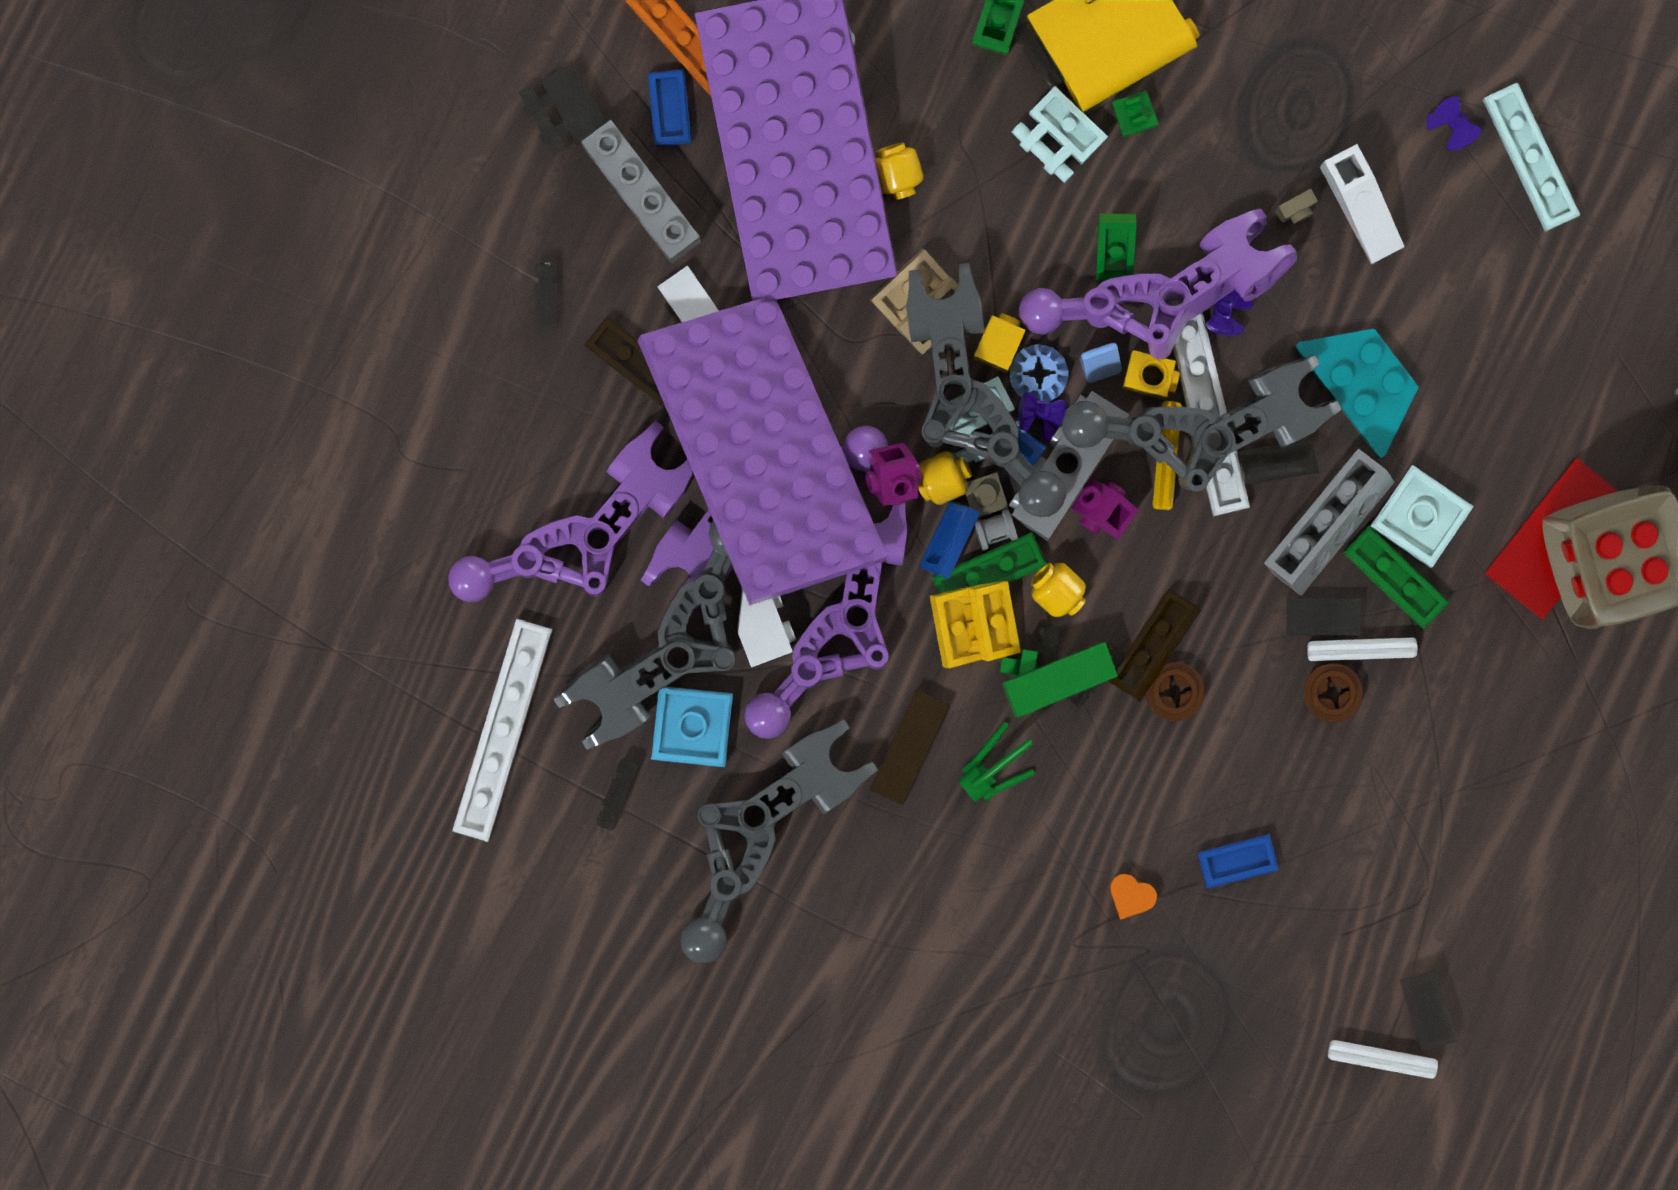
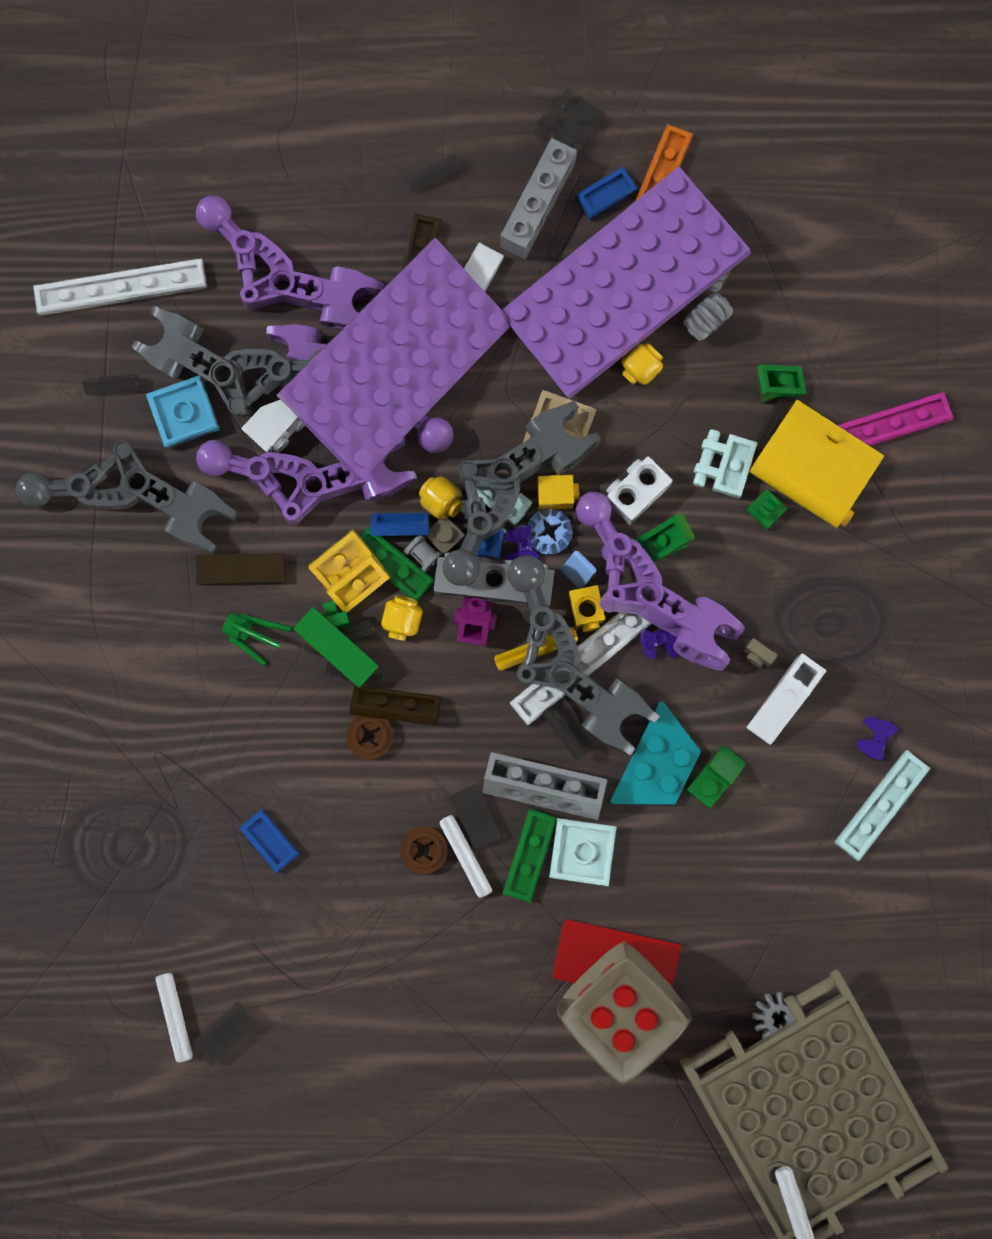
camera: 60 degrees right, 5 degrees down
(881, 67) = (708, 316): none -> light grey gear
(893, 474) = (424, 458): magenta brick -> none
(1051, 247) = (643, 494): none -> white brick
(1130, 896) = (208, 776): orange tile -> none
(1410, 324) = (716, 776): none -> green slope

